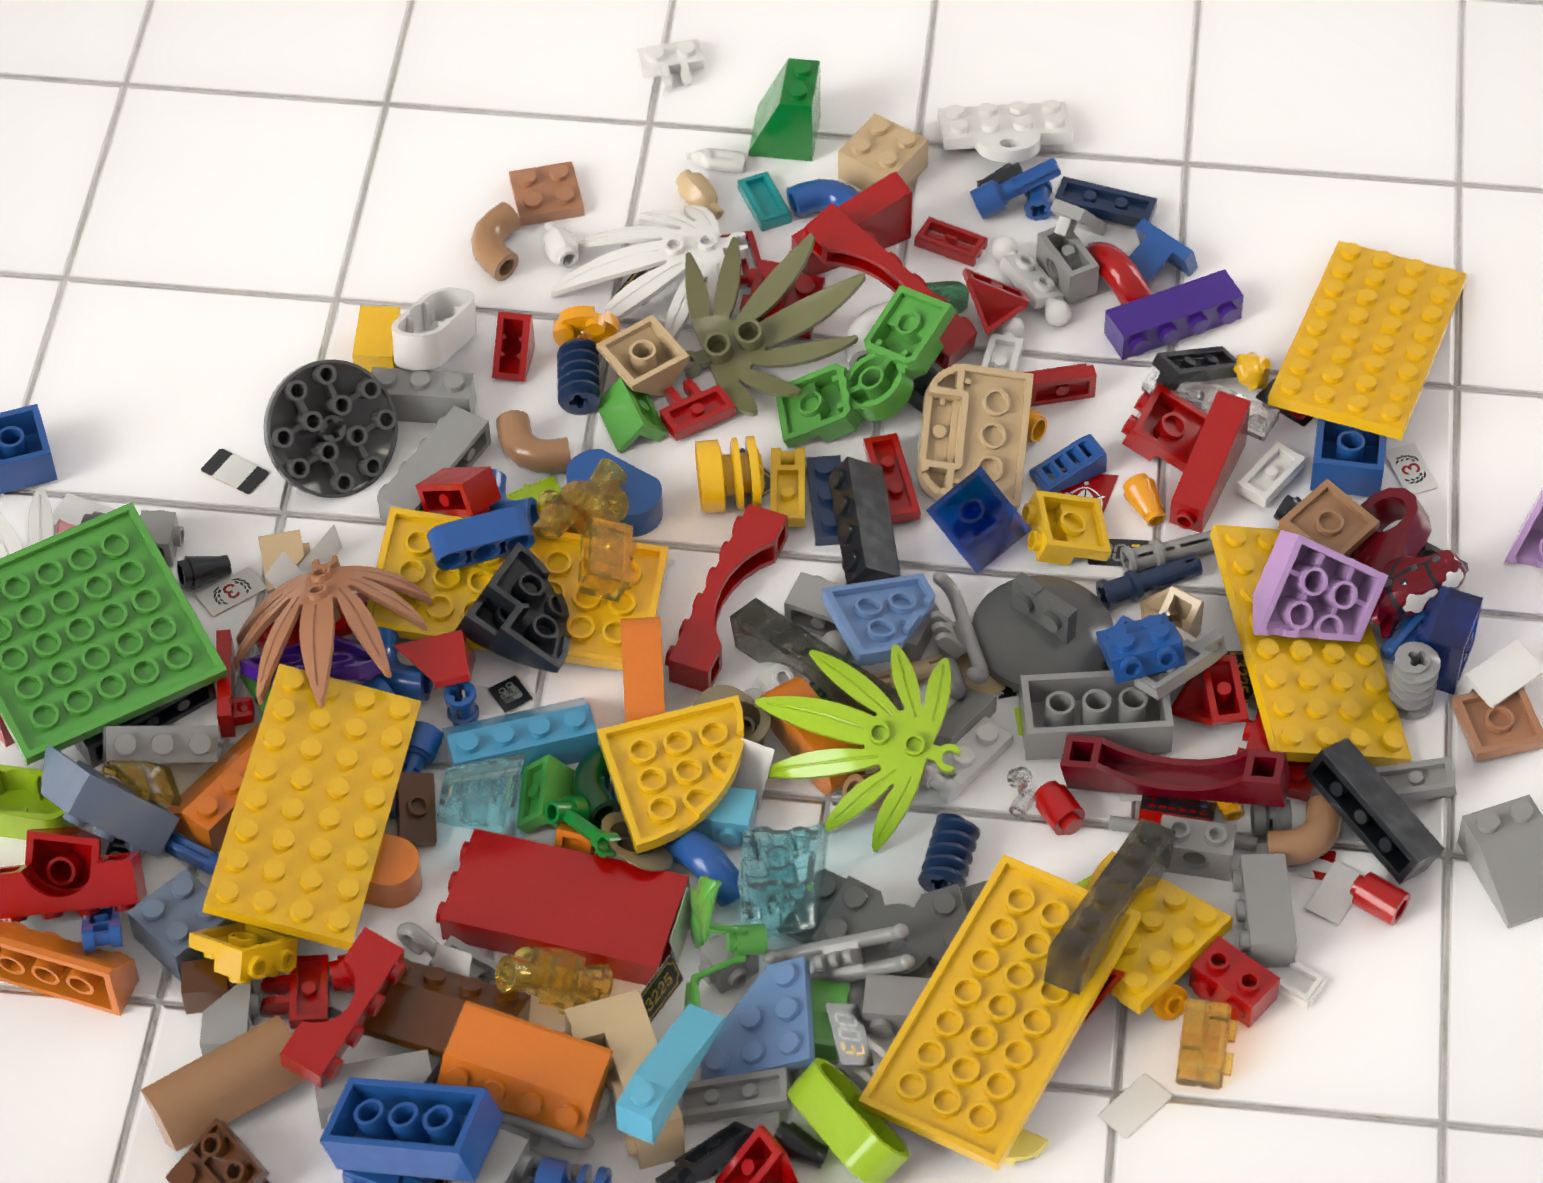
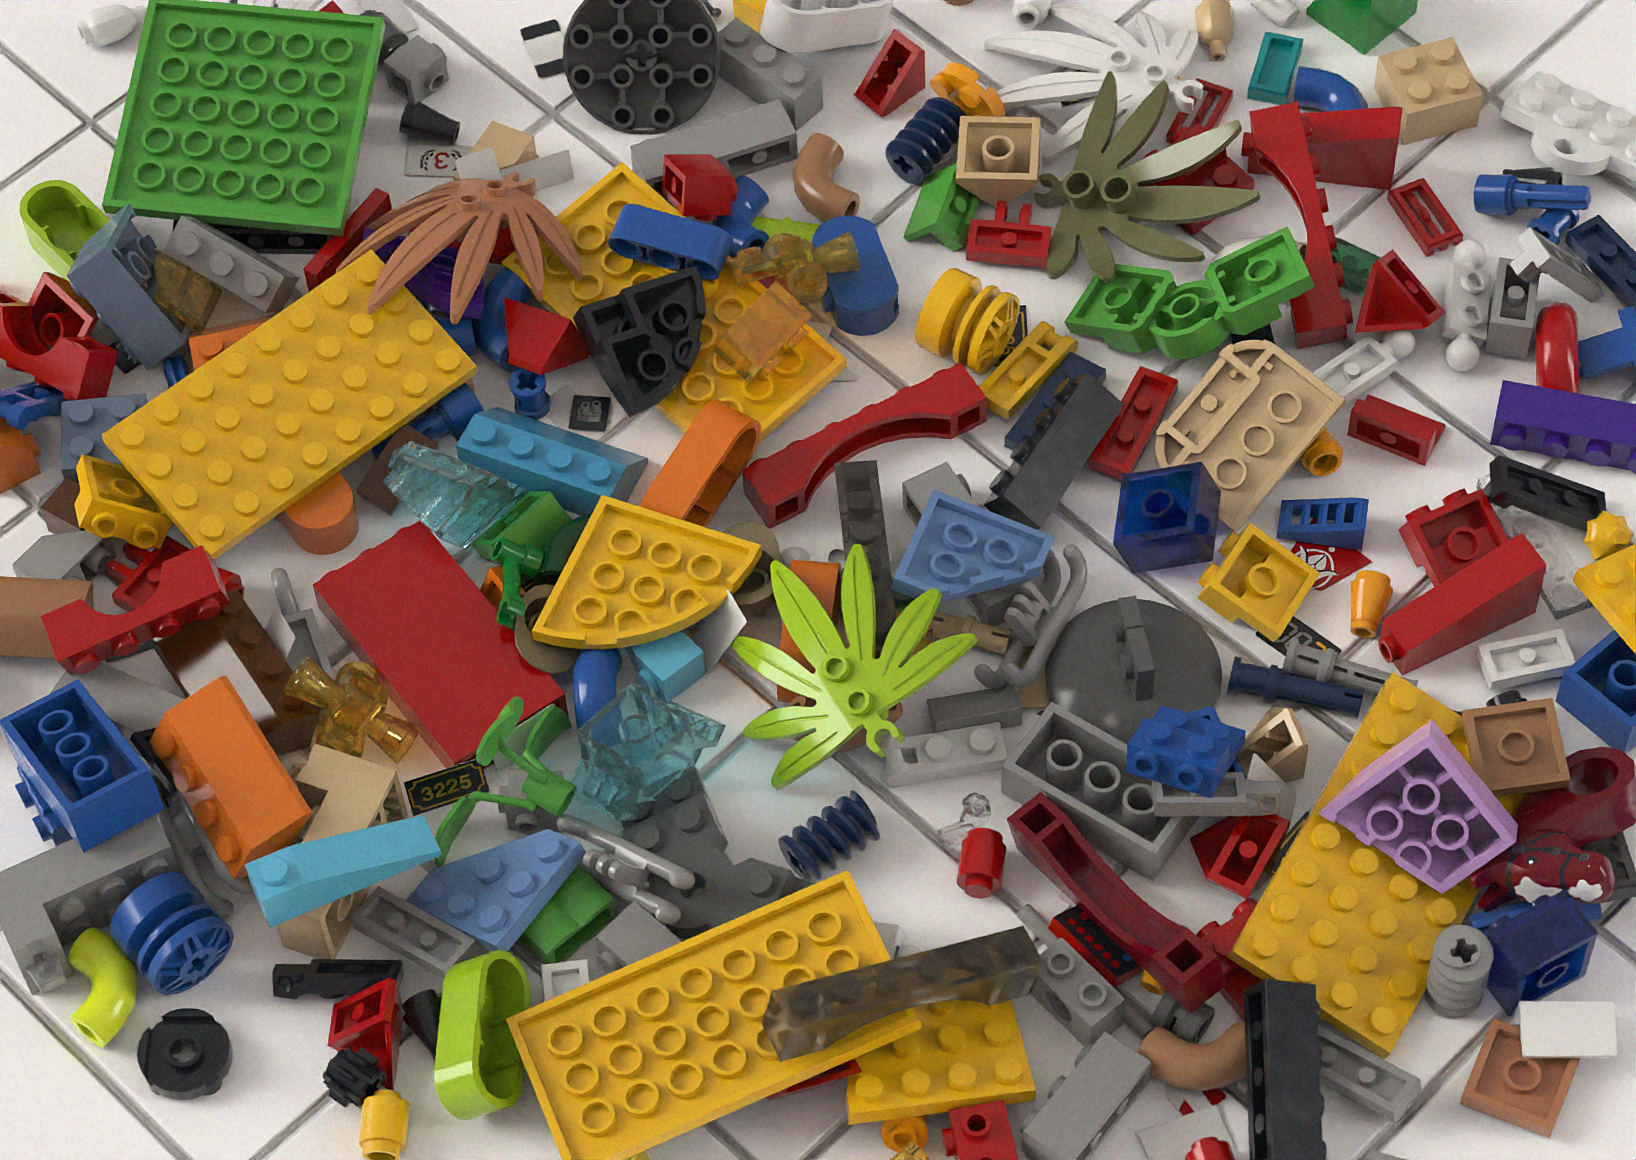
camera: 40 degrees right, 5 degrees up
(849, 1034) = (564, 949): sticker -> none

